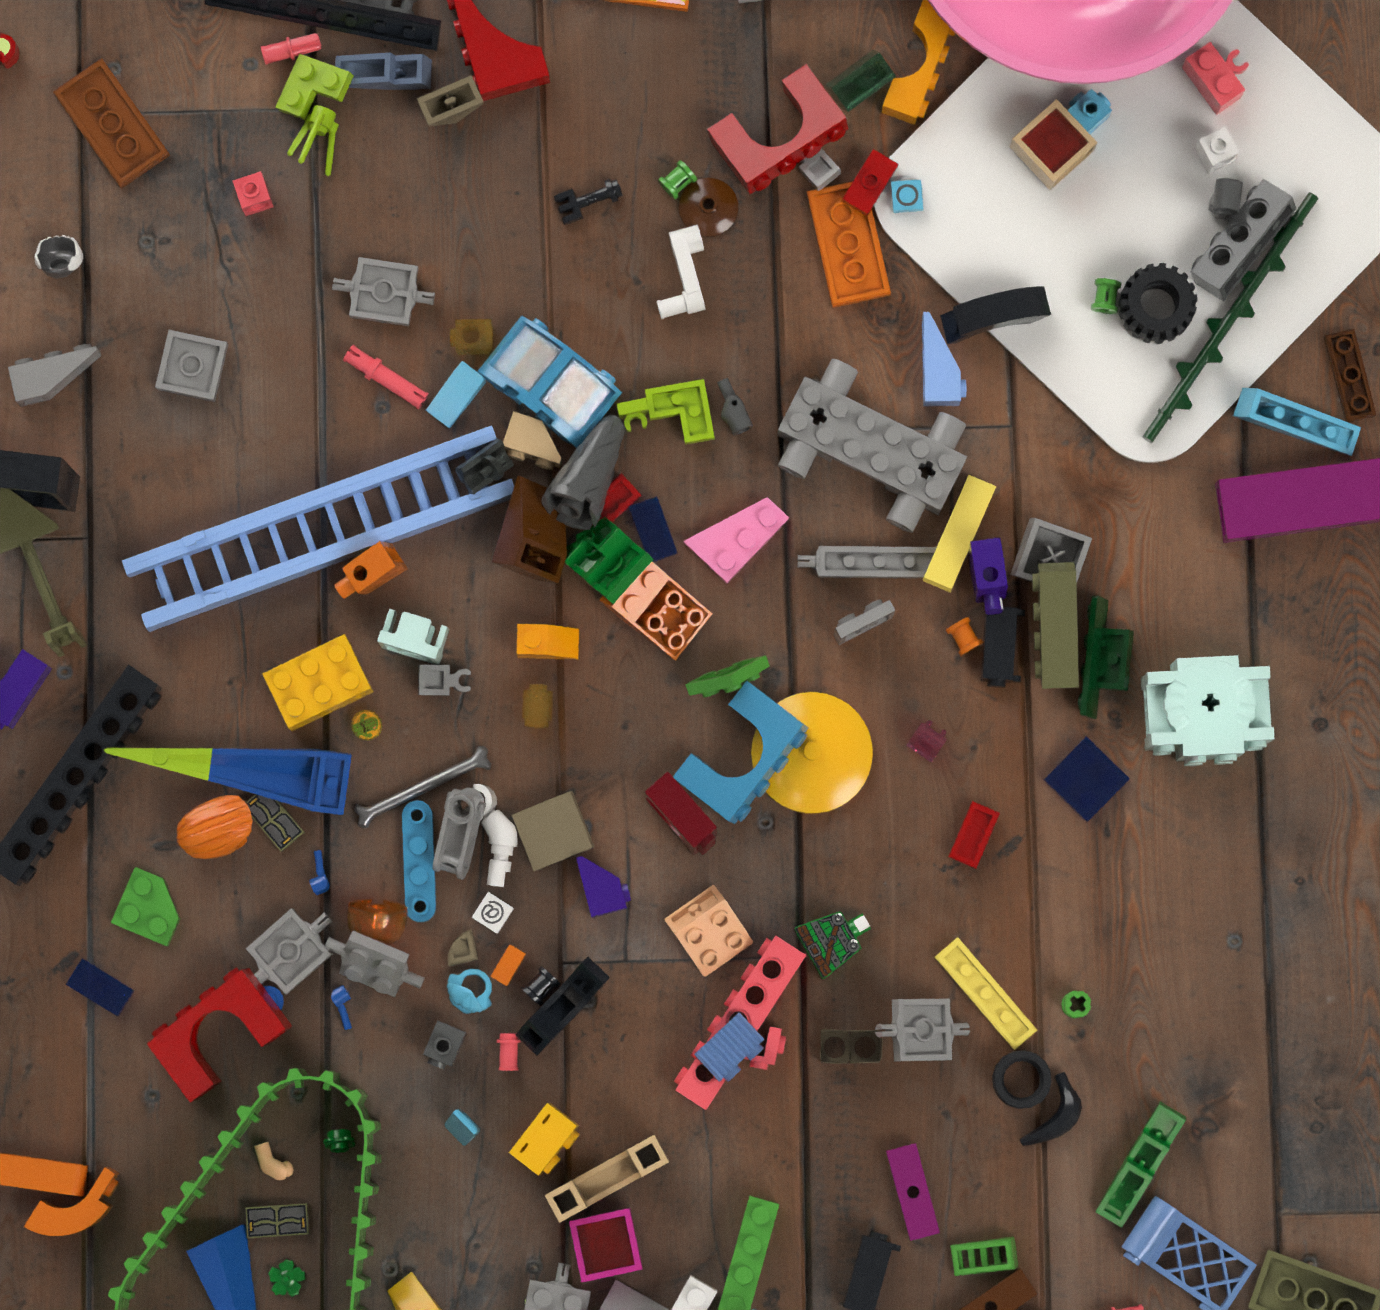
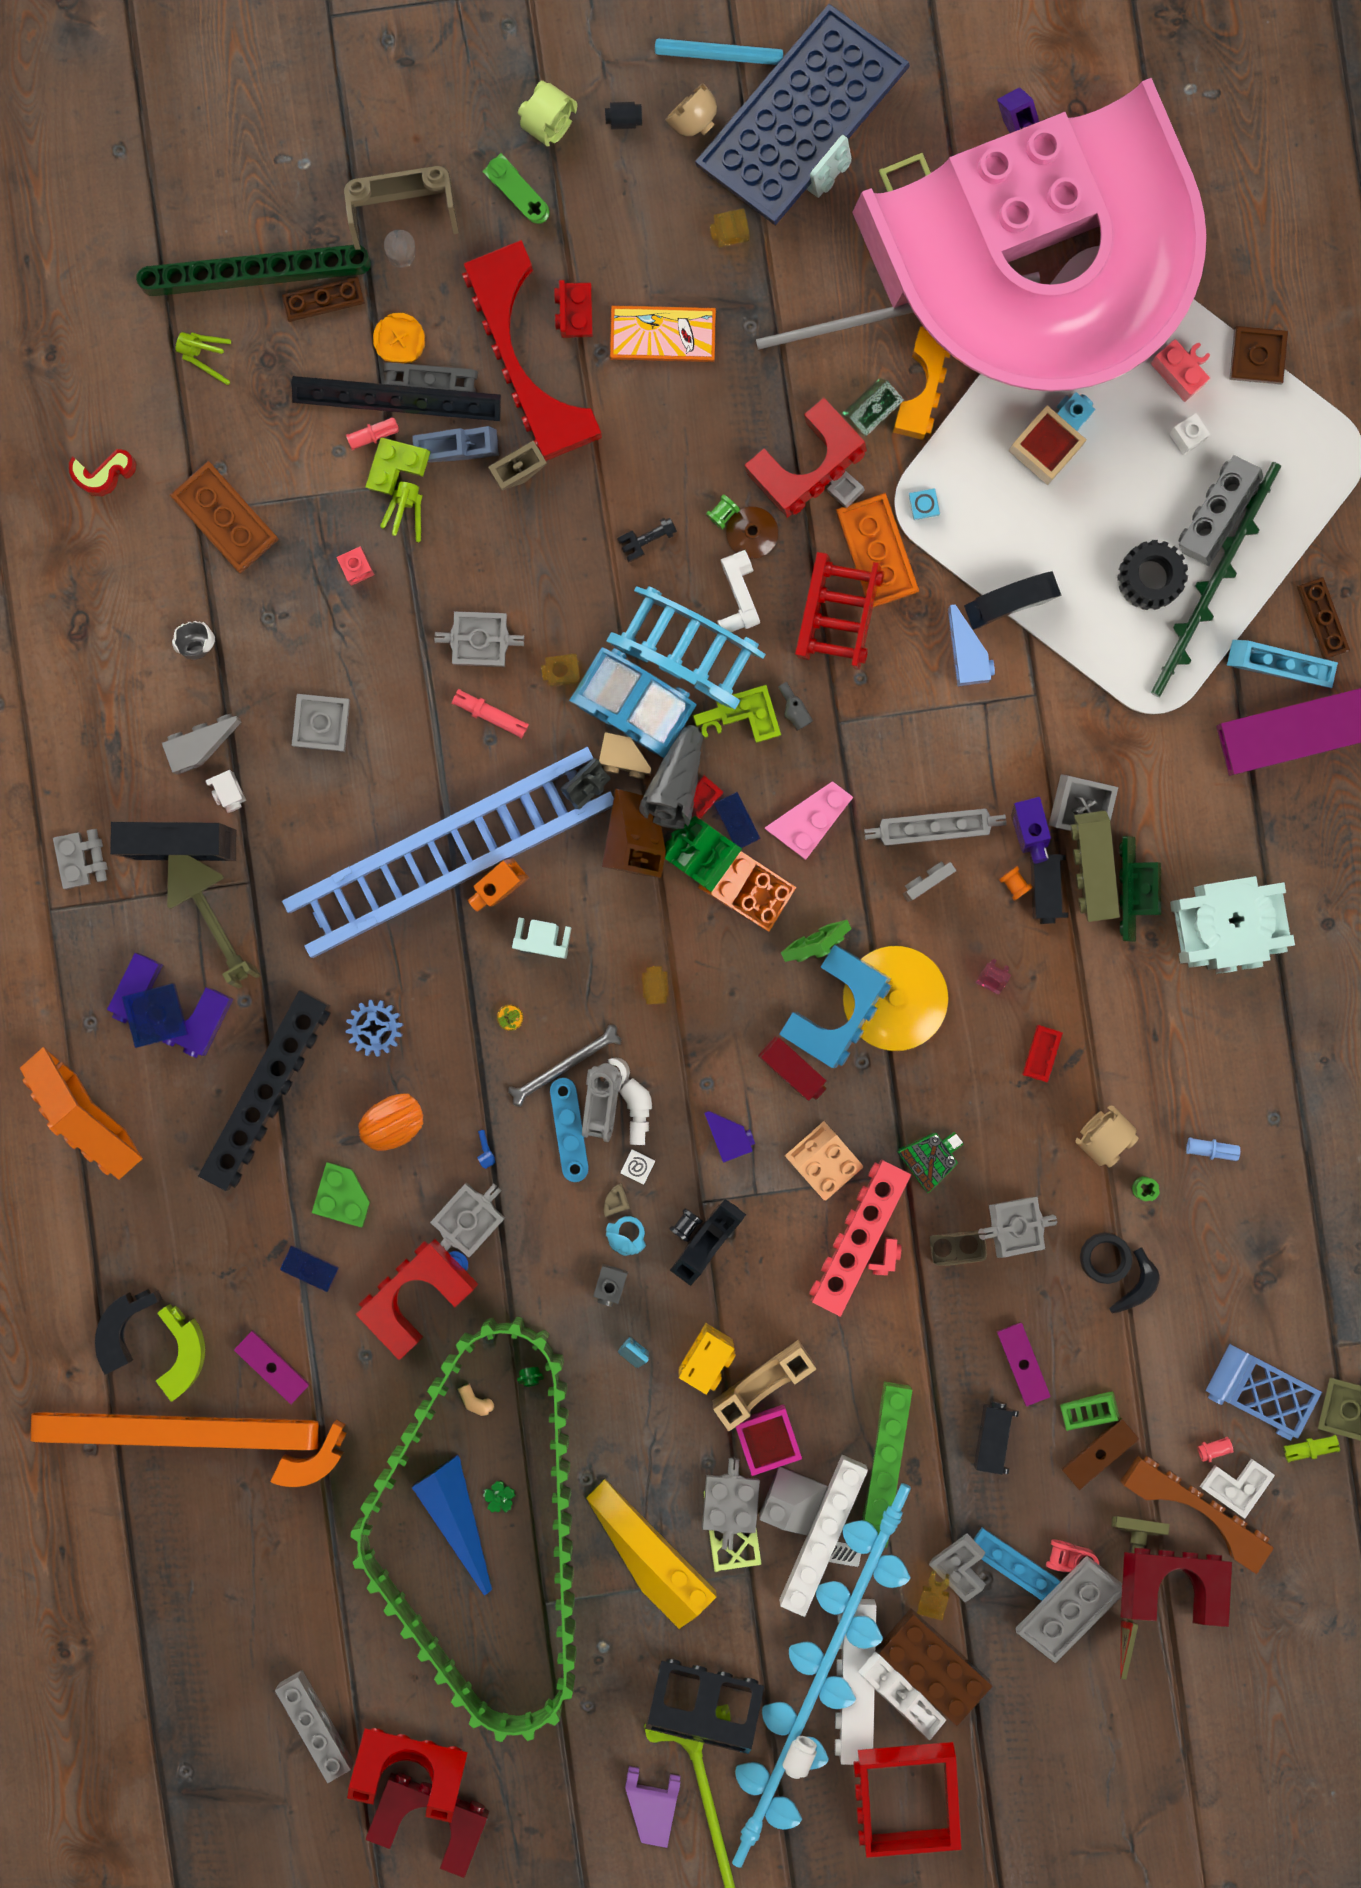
camera: 10 degrees left, 5 degrees up
(29, 1081) = (259, 1355): none -> magenta tile
(74, 430) = (227, 791): none -> white brick
(209, 704) = (373, 1015): none -> medium blue gear
(274, 821) = (440, 1107): tile -> none
(277, 1220) = (485, 1449): tile -> none
(293, 776) = (453, 1070): blue plate -> none
(317, 682) = (464, 986): yellow piece -> none
(339, 997) = (515, 1253): blue hand -> none
(374, 963) = (541, 1224): light grey plate -> none
(378, 921) = (539, 1188): clear orange cylinder -> none
(437, 680) = (566, 972): light grey plate -> none
(456, 394) = (553, 722): medium azure slope -> none
(508, 965) = (656, 1211): orange piece -> none
(508, 1052) = (665, 1284): coral pin -> none
(547, 641) = (657, 928): light orange slope -> none
(553, 831) = (681, 1091): dark tan slope -> none
(599, 341) = (672, 663): none -> medium azure fence
(730, 1047) = (856, 1262): medium blue brick -> none
(774, 284) = (819, 594): none -> red fence
(870, 182) = (891, 495): red plate -> none
(872, 445) = (918, 726): light grey piece -> none
(959, 533) = (1002, 795): light yellow tile -> none
(985, 993) = (1066, 1187): light yellow tile -> none
(1037, 937) = (1107, 1137): none -> tan brick
(1086, 779) = (1133, 994): clear blue plate -> none
(1111, 287) = (1106, 573): bright green bush -> none
(1140, 1164) = (1214, 1318): green slope -> none
(1159, 968) = (1213, 1149): none -> light blue axle
(1226, 198) = (1203, 476): dark grey piece -> none
(1305, 71) = (1258, 355): none -> reddish brown tile

